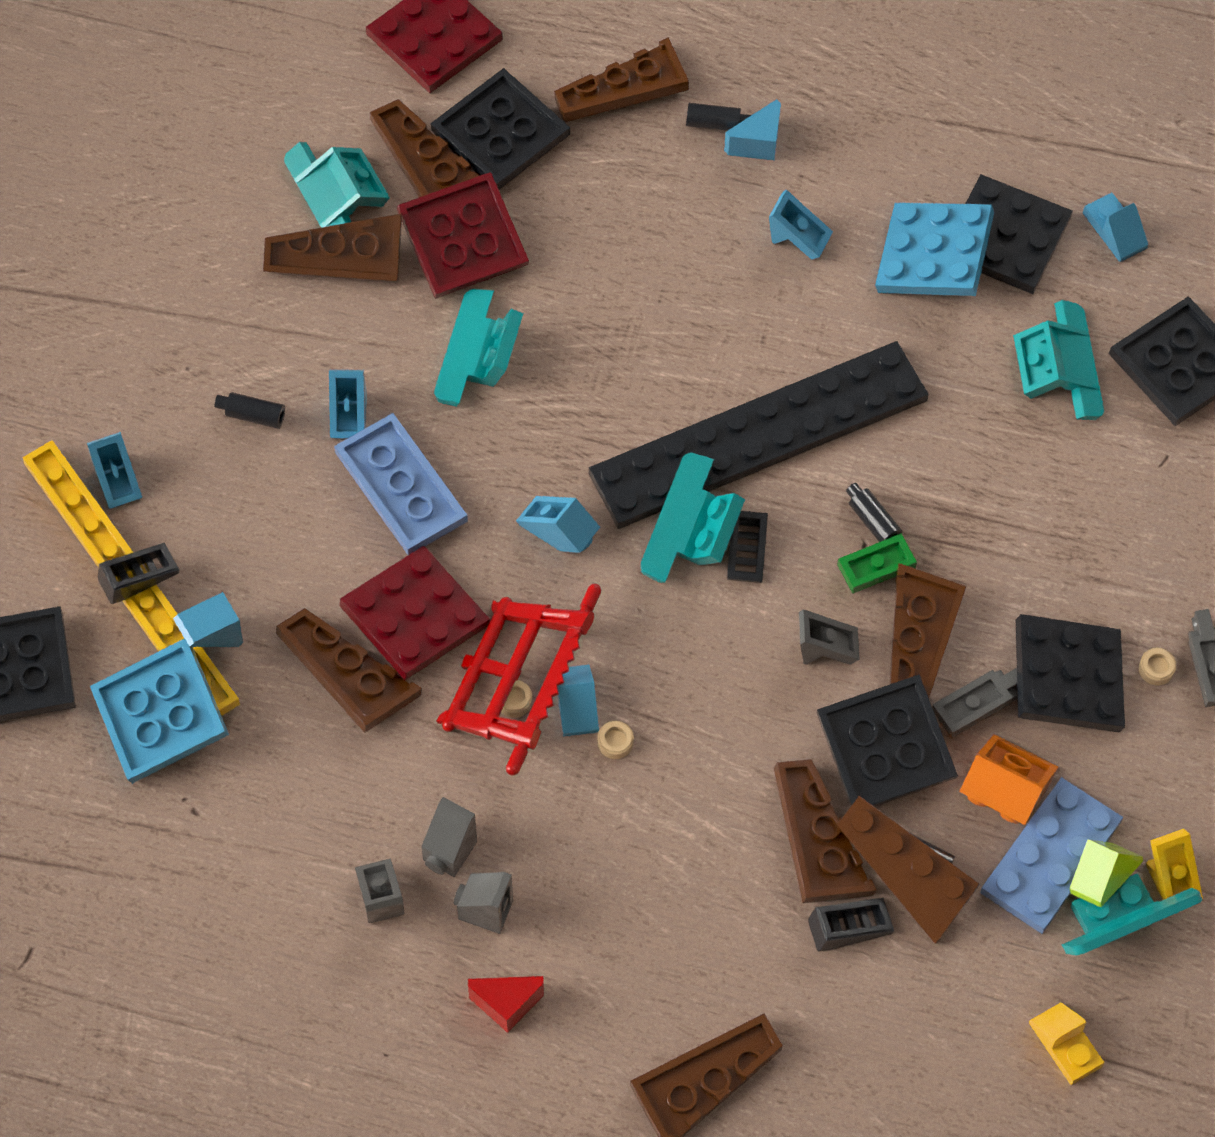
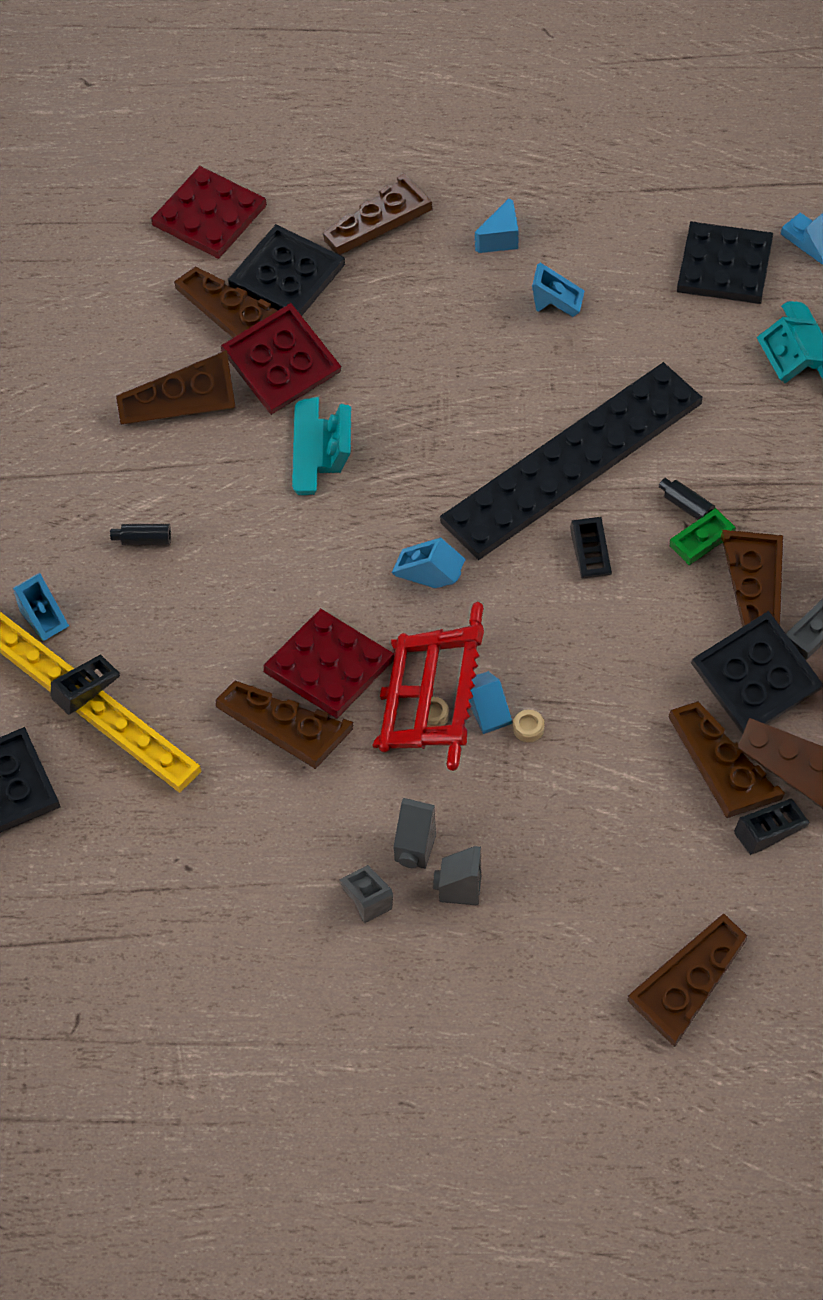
camera: 10 degrees left, 5 degrees down
(159, 710) = (135, 790): dark azure plate -> none
(210, 624) = (161, 708): dark azure slope -> none
(335, 182) = (160, 341): teal plate -> none
(347, 402) = (223, 510): dark azure slope -> none
(401, 484) = (286, 564): medium blue plate -> none
(506, 998) = (500, 954): red slope -> none
(691, 521) = (540, 538): teal plate -> none
(714, 116) = (459, 225): black cylinder -> none
(827, 638) = (680, 602): dark grey slope -> none
(935, 249) = (672, 284): dark azure plate -> none

